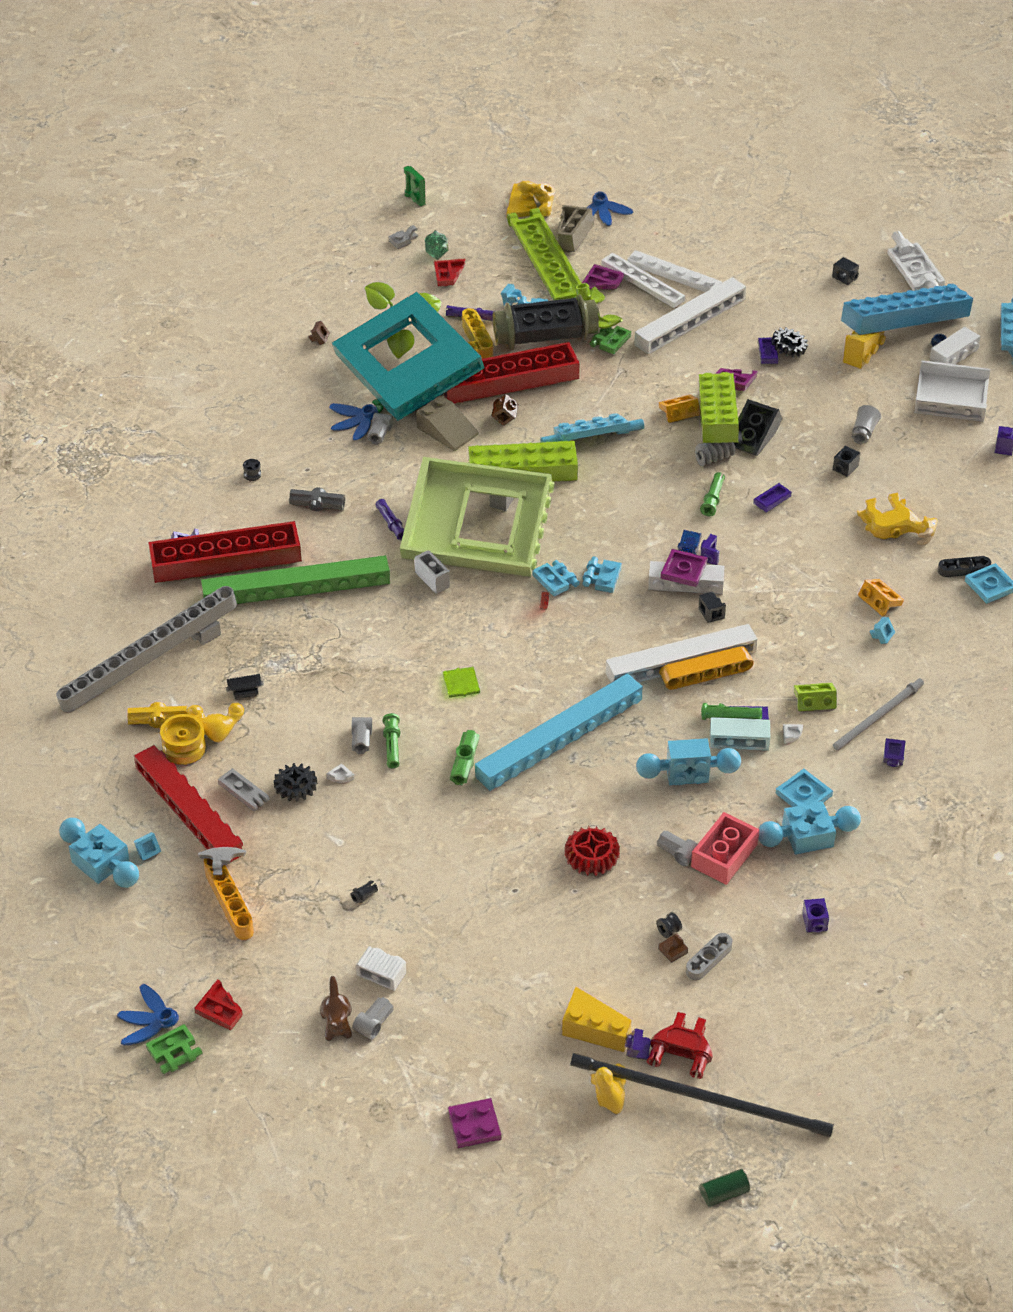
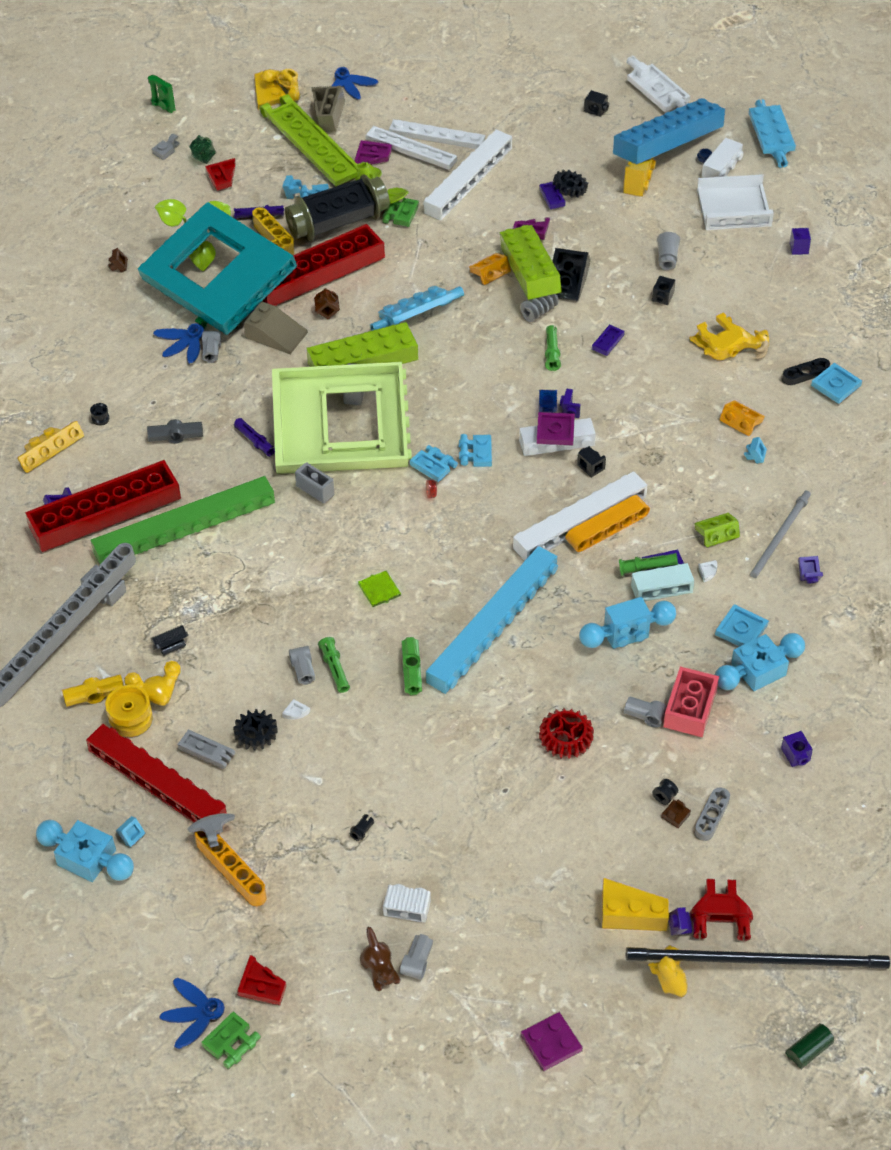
camera: 15 degrees left, 5 degrees up
(194, 488) = (49, 444): none -> yellow bracket

